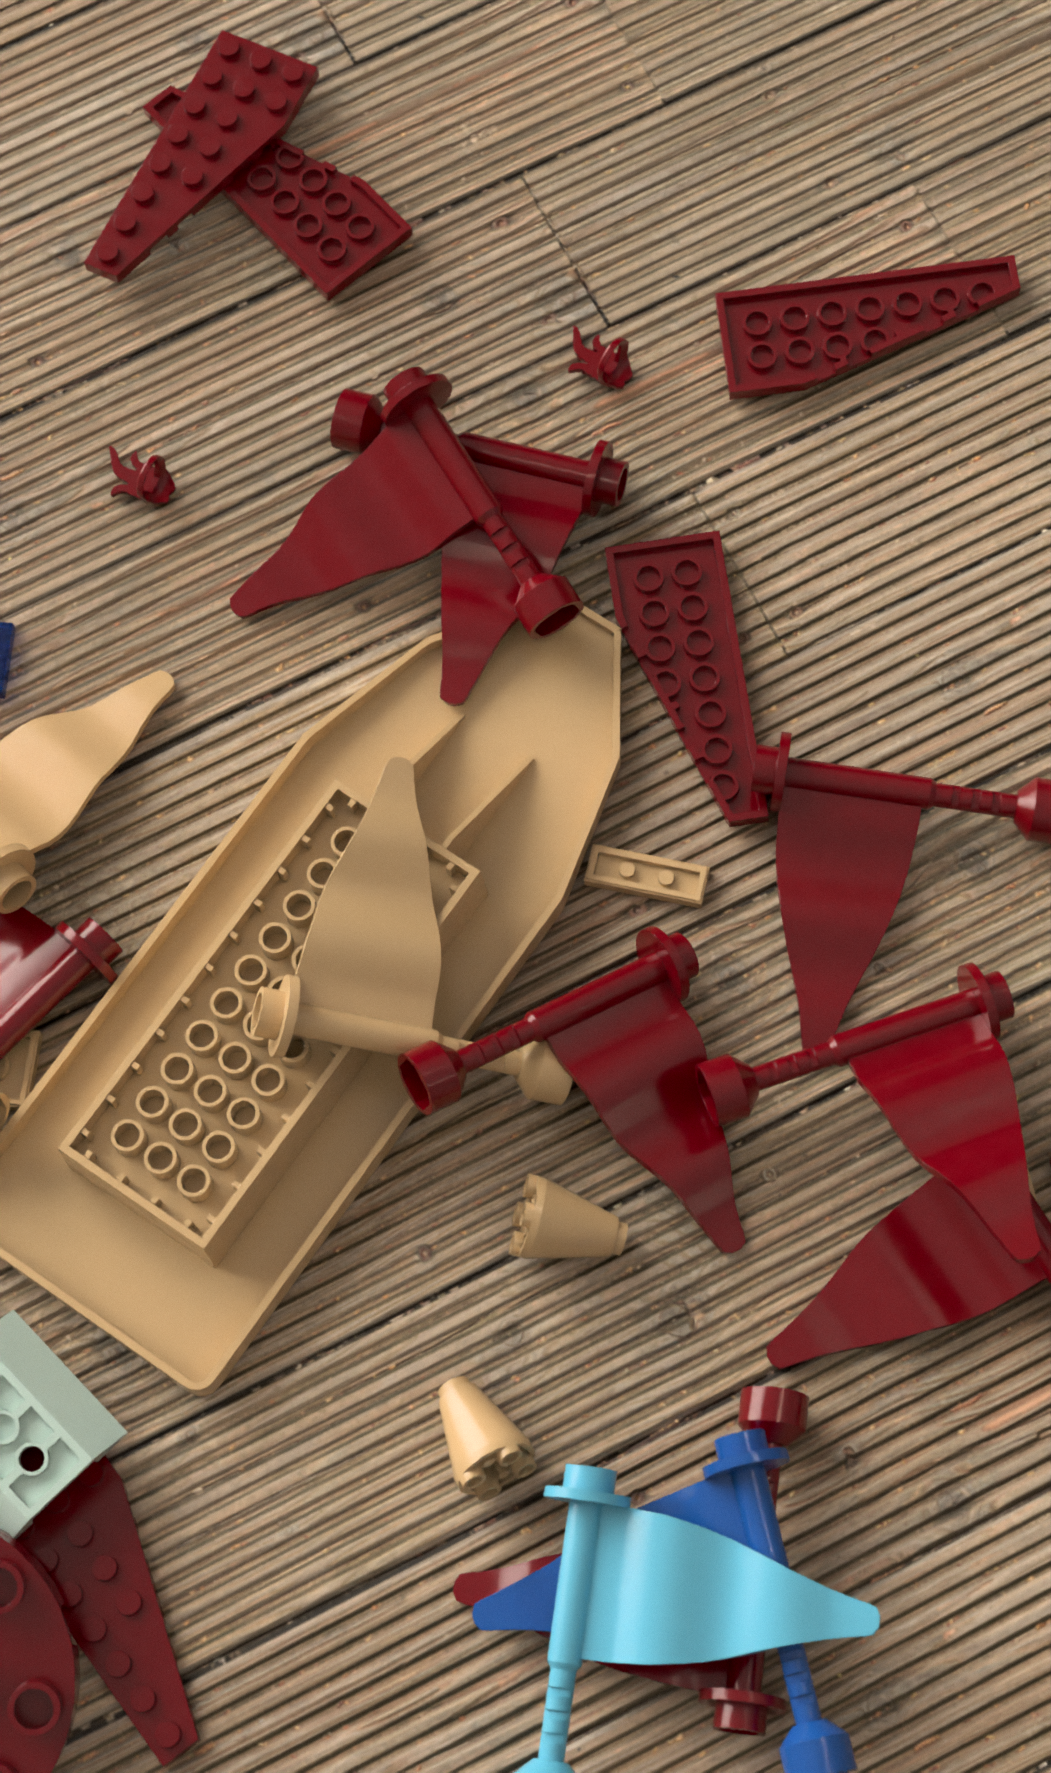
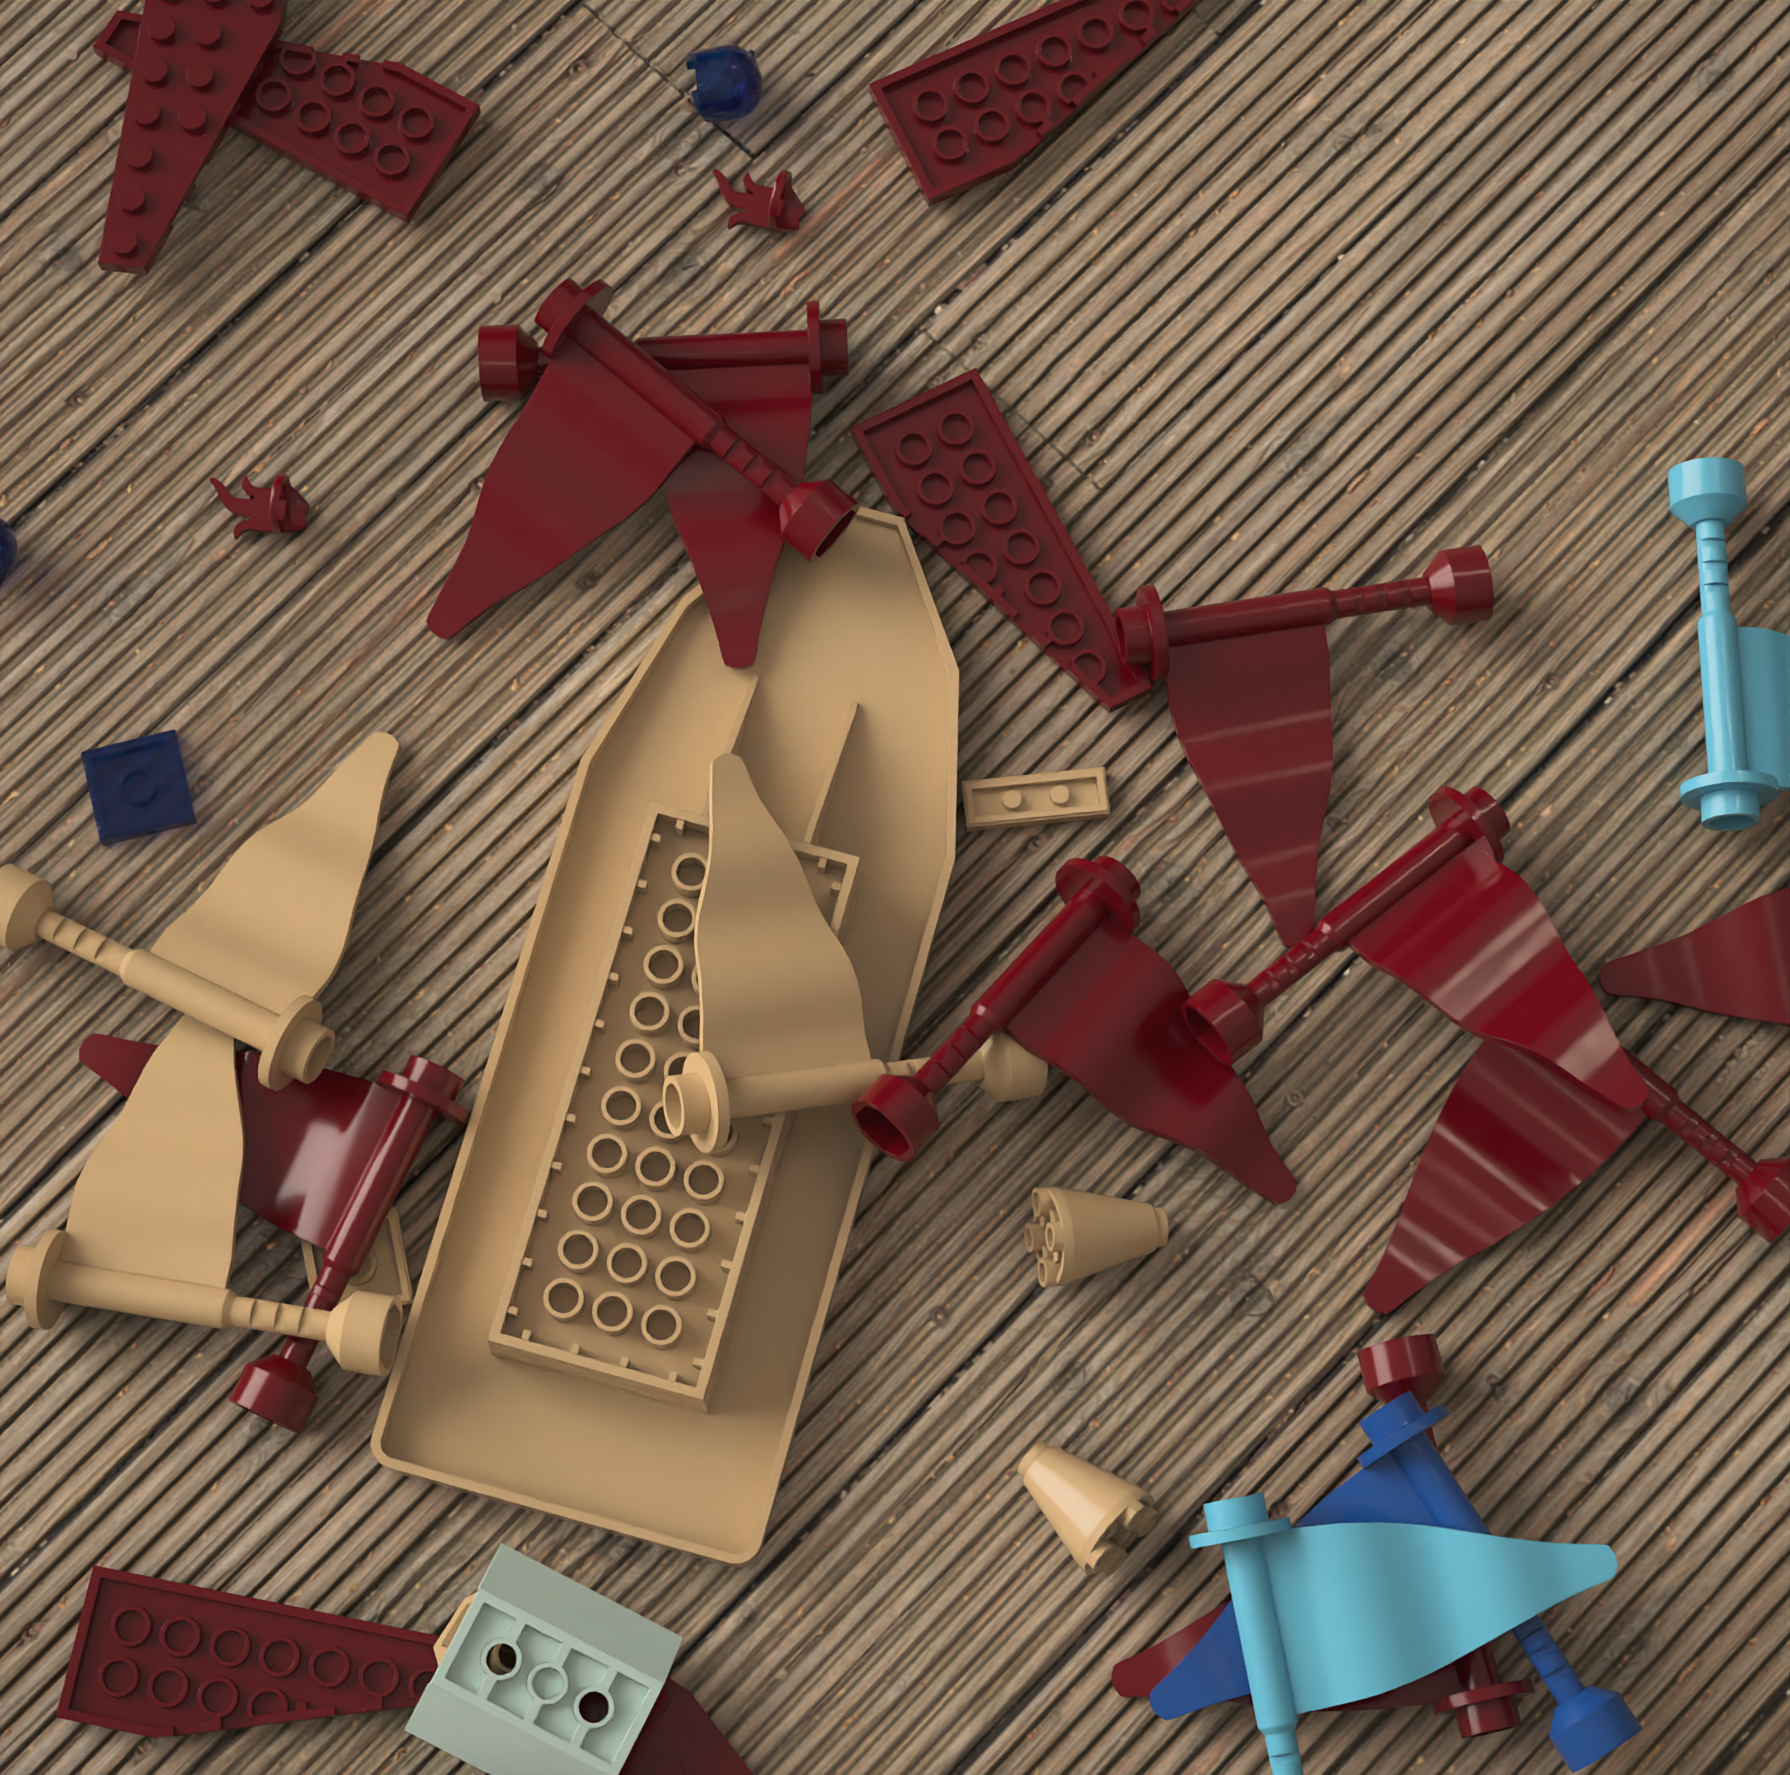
camera: 30 degrees left, 5 degrees up
(603, 261) = (725, 82): none -> clear blue helmet

